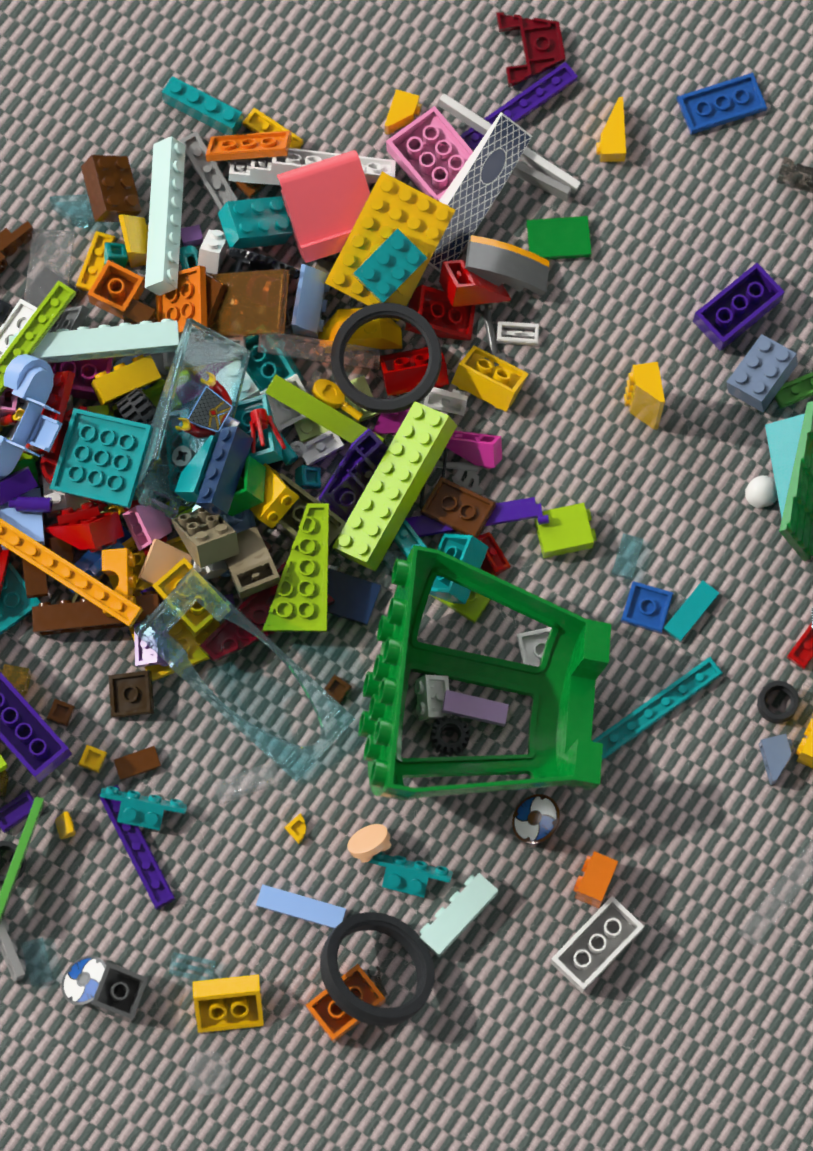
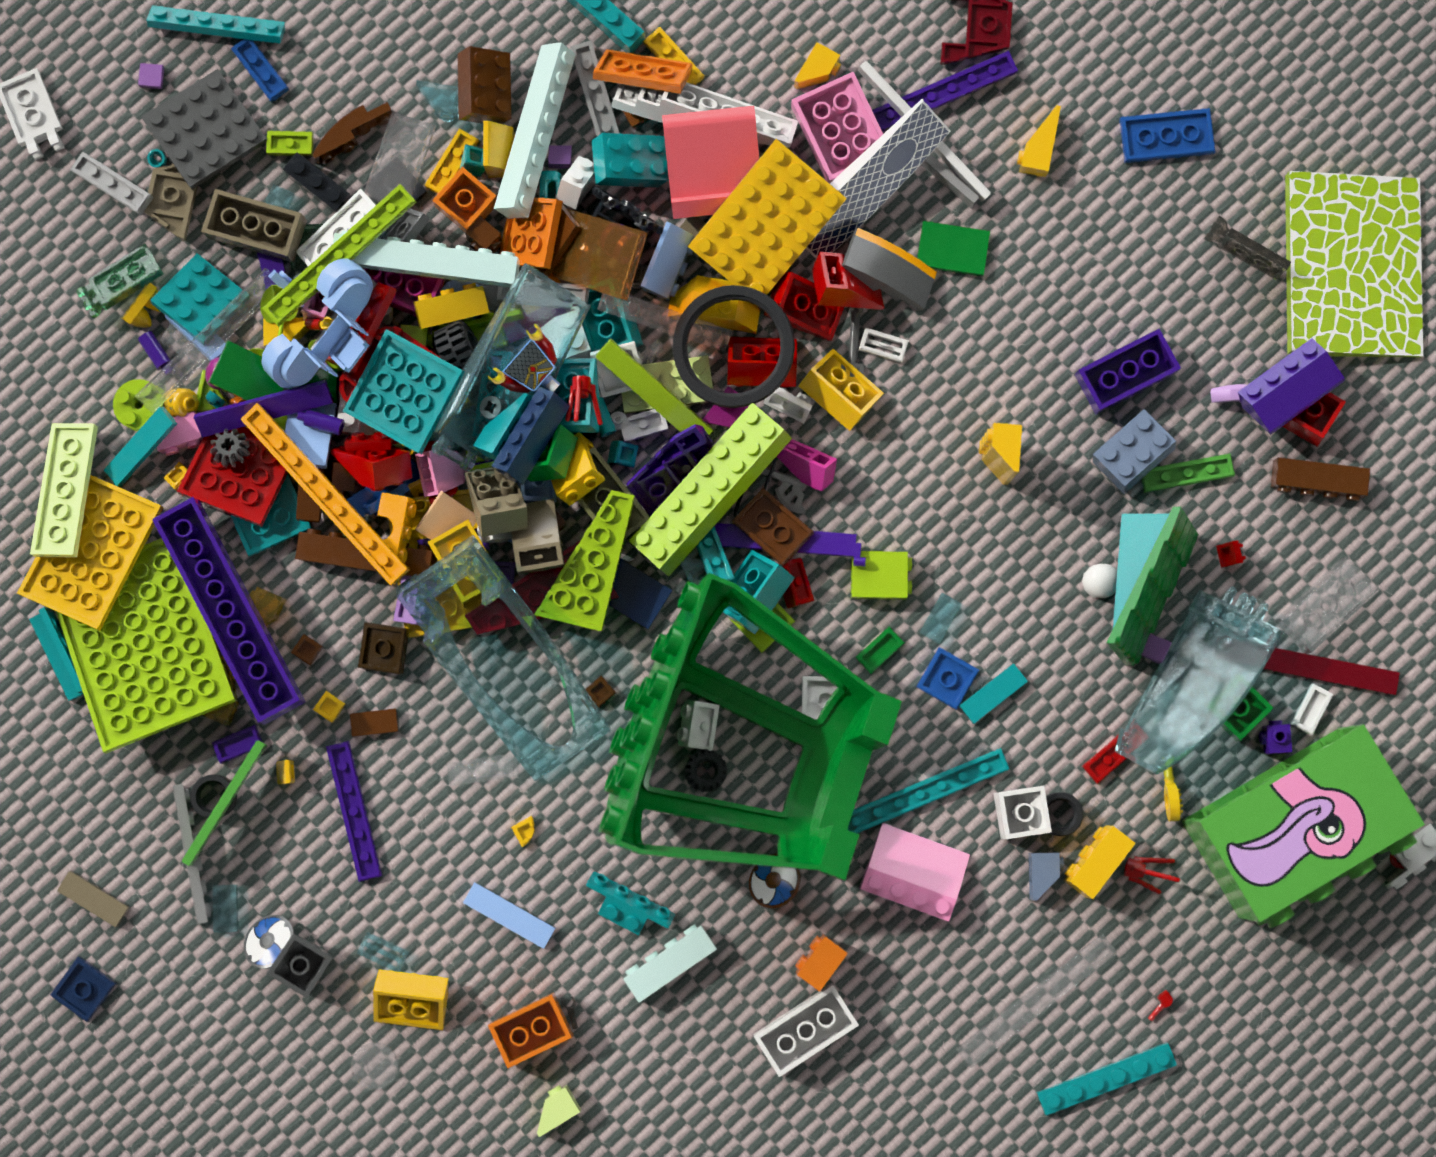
camera: 15 degrees right, 10 degrees up
(140, 809) = (367, 774): teal bracket -> none
(332, 395) = (664, 370): yellow piece -> none
(351, 1003) = (519, 1006): black tyre -> none
(369, 842) = (594, 865): light nougat tile -> none
(387, 1071) = (557, 1109): none -> yellowish green slope
(389, 266) = (760, 246): teal brick -> none
(475, 708) = (739, 747): lavender tile -> none
(581, 595) = (879, 650): none -> green tile
(660, 784) = (915, 872): none -> bright pink slope
(743, 706) = (1022, 812): none -> white slope

